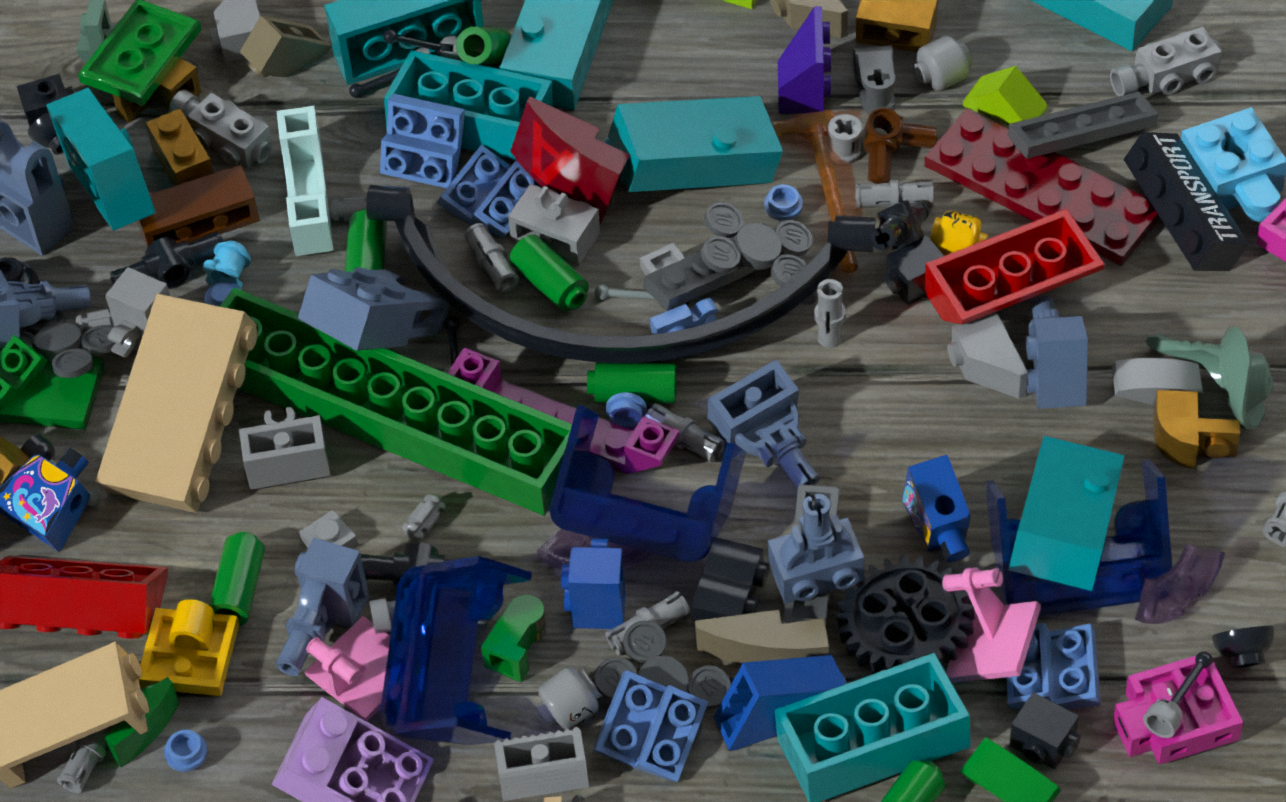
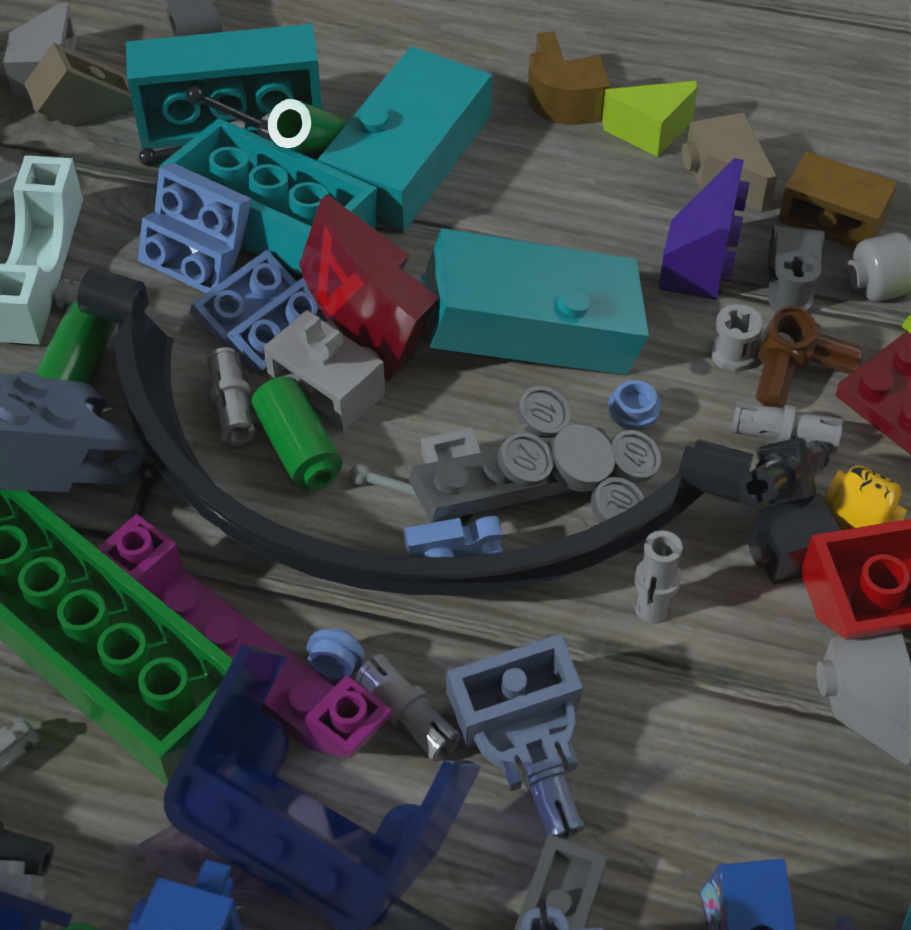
camera: 10 degrees right, 0 degrees up
(648, 380) = (371, 616): green brick -> none
(815, 126) = (700, 315): clear orange bar -> none

